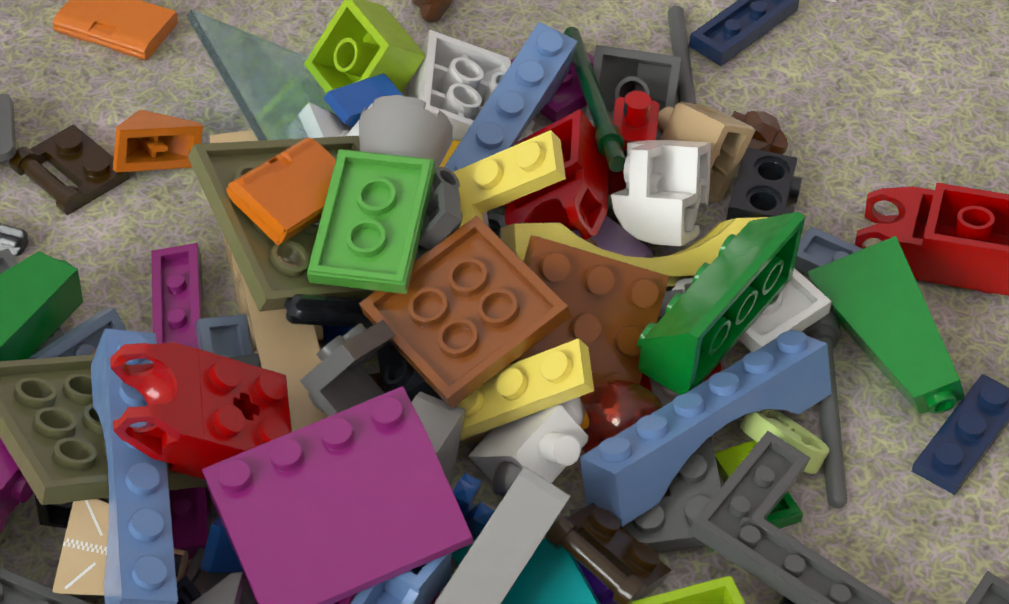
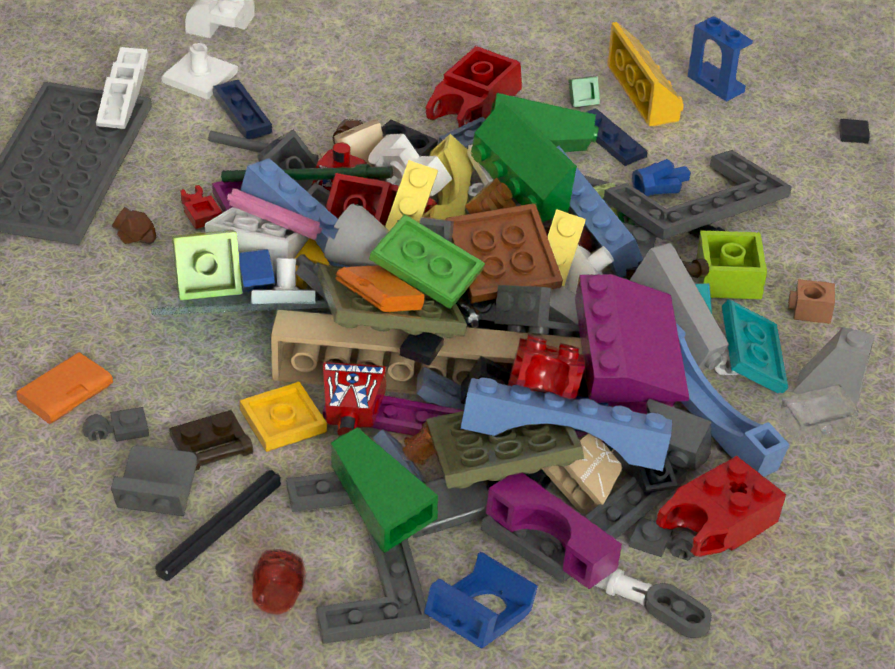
camera: 70 degrees left, 5 degrees down
(68, 89) = (124, 424): none -> dark grey plate
(134, 219) = (283, 416): none -> yellow plate
(154, 142) = (217, 388): orange slope -> none
(162, 260) = (353, 394): none -> red torso
(228, 284) = (422, 347): none -> black tile
(476, 95) = (274, 214): none -> bright pink axle
(506, 37) = (199, 208): none -> red plate
(884, 515) = (660, 178): none -> blue rock

